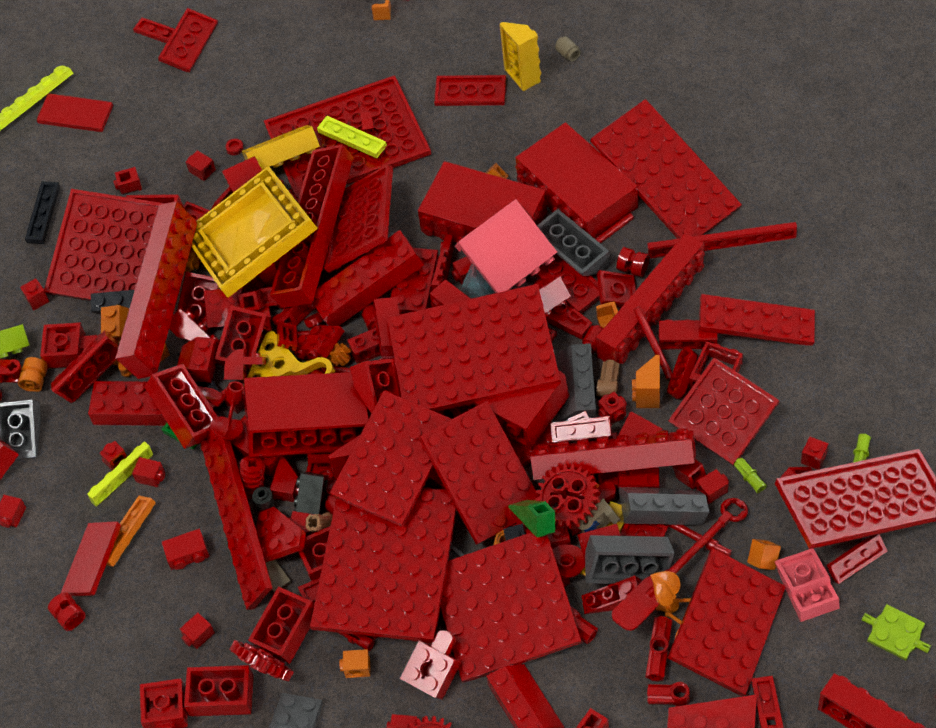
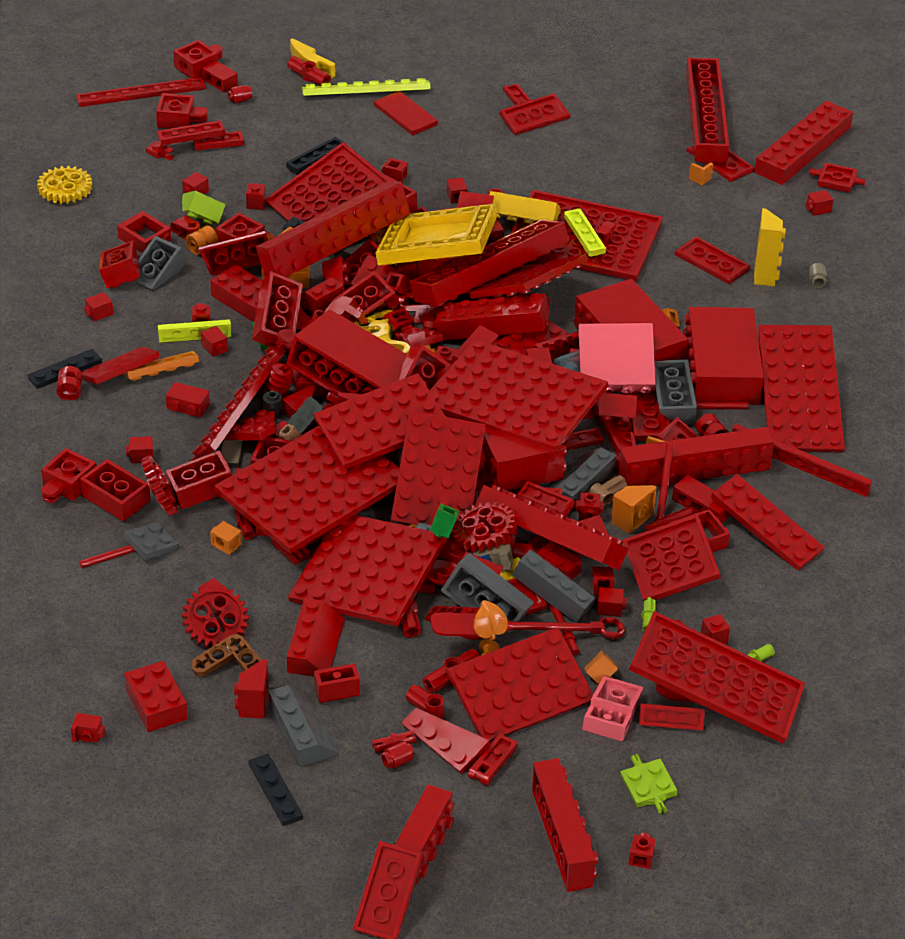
camera: 30 degrees right, 15 degrees down
(41, 597) = (50, 374): none -> black plate
(432, 666) = (273, 569): brick -> none

